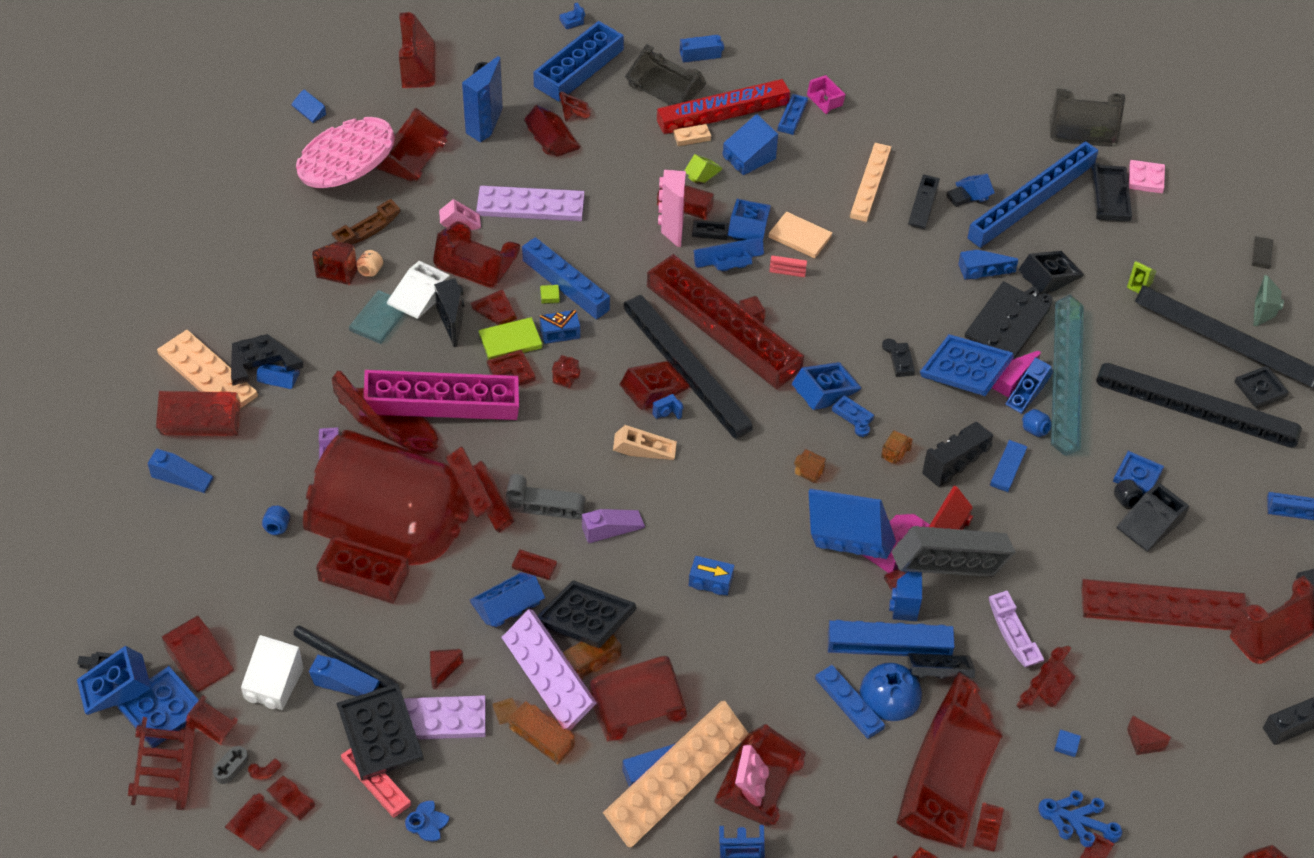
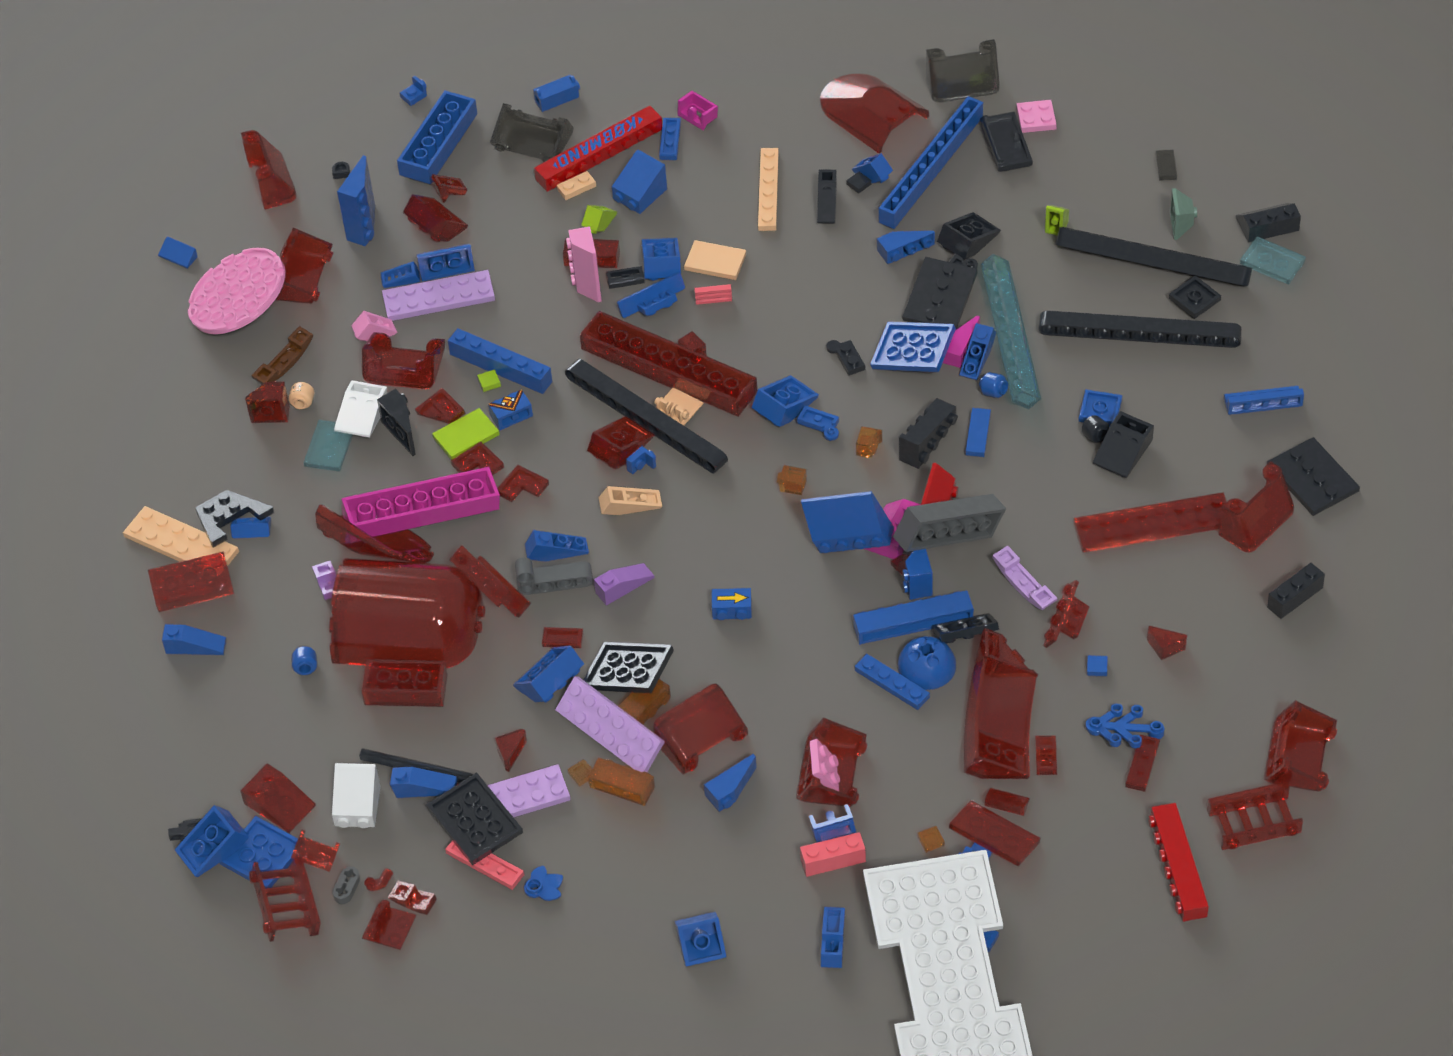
camera: 10 degrees left, 0 degrees up
(512, 180) = (411, 275): none -> blue slope
(546, 174) = (445, 262): none -> blue slope
(548, 397) = (520, 480): none -> clear red plate
(555, 470) = (554, 546): none -> blue slope
(565, 371) = (531, 450): clear red brick -> none
(675, 774) = (755, 783): light nougat plate -> none
(721, 364) = (678, 405): none -> light nougat hinge
(986, 130) = (867, 107): none -> clear red windscreen

